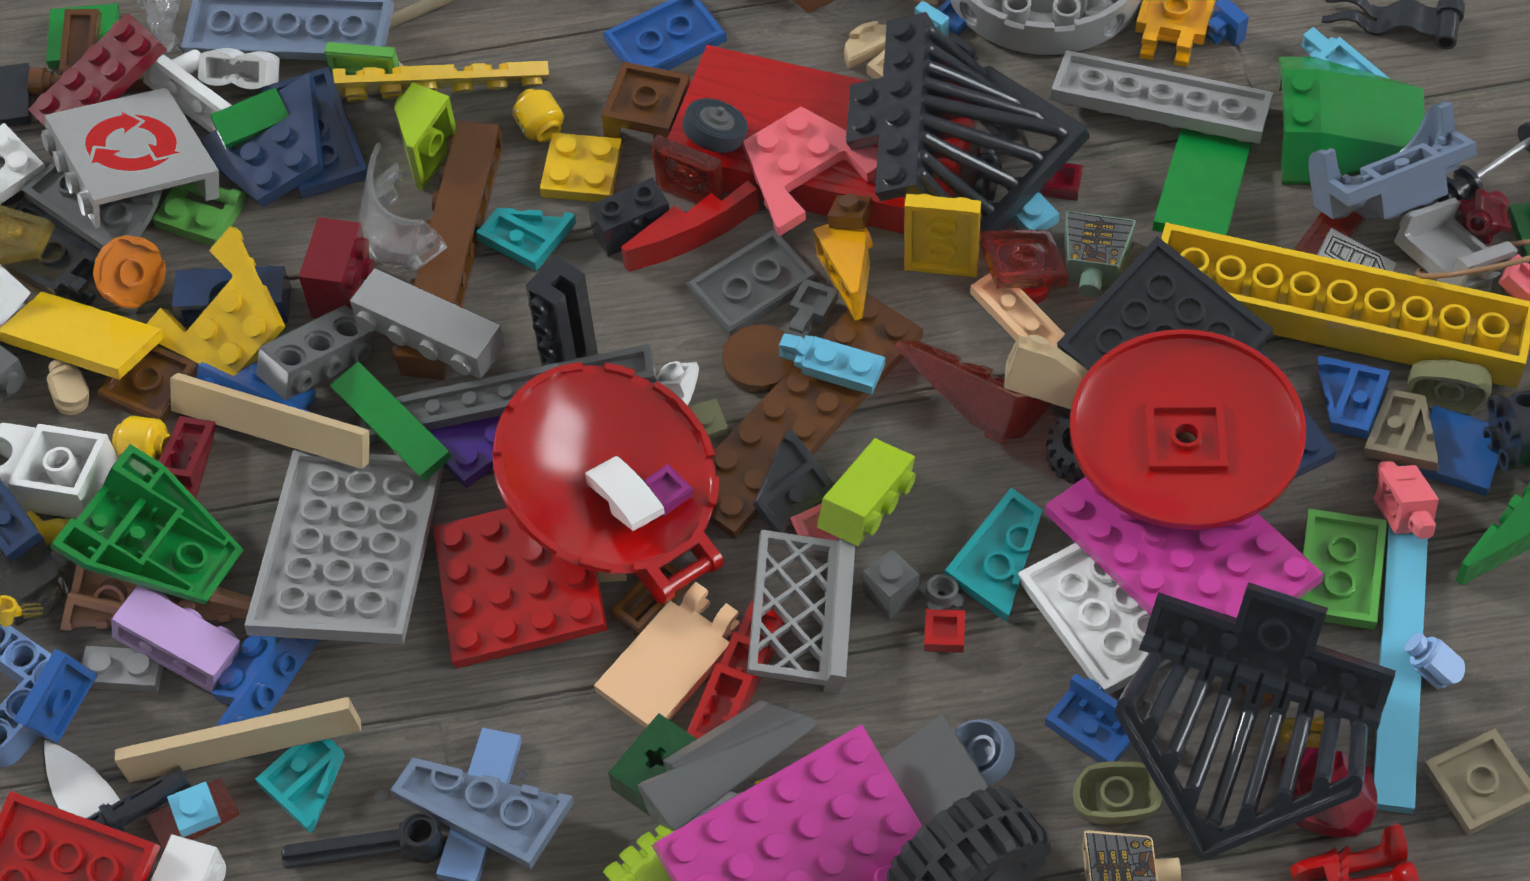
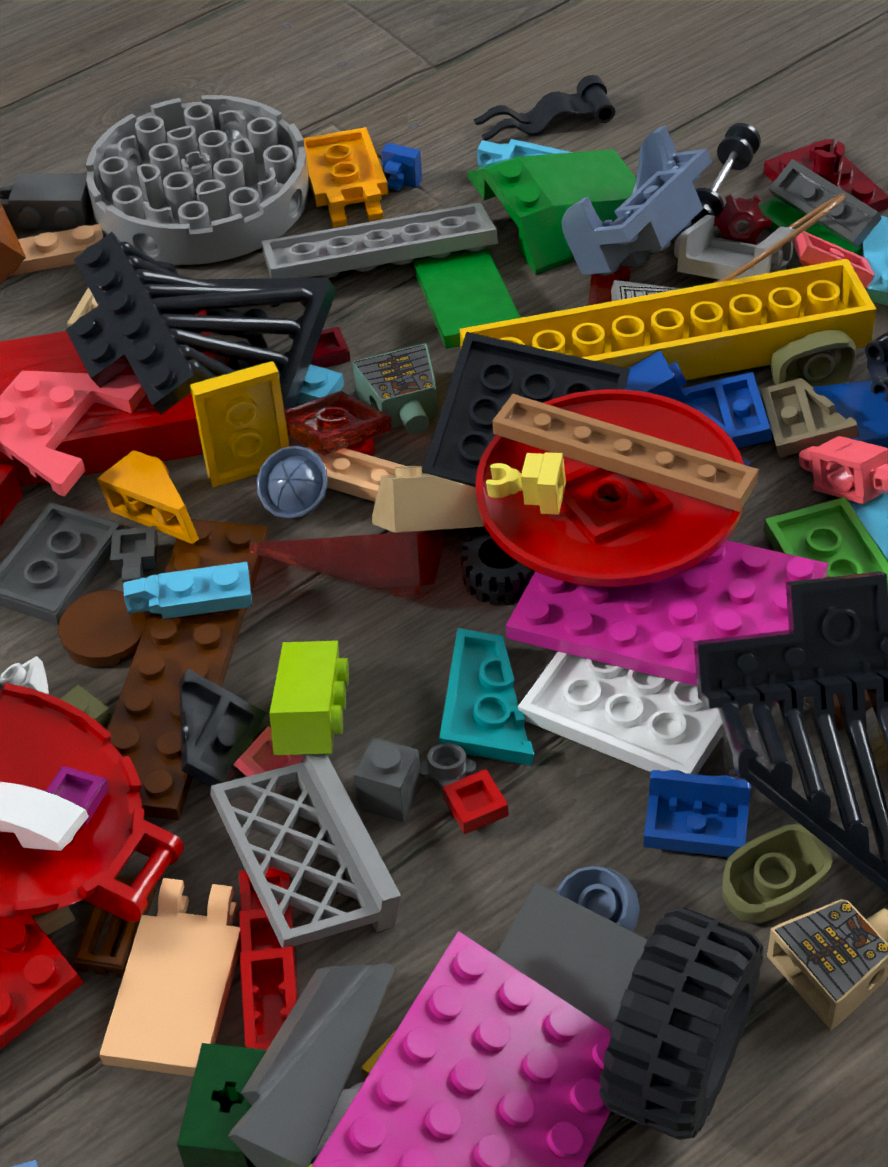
camera: 30 degrees left, 10 degrees down
(850, 211) = (129, 444): reddish brown plate -> none
(864, 43) = (56, 307): tan tile -> none
(960, 300) = (292, 482): none -> sand blue hat
(1127, 402) = (541, 481): none -> light yellow piece
(1209, 409) = (626, 452): none -> medium nougat plate
(1298, 346) = (657, 377): none -> blue brick

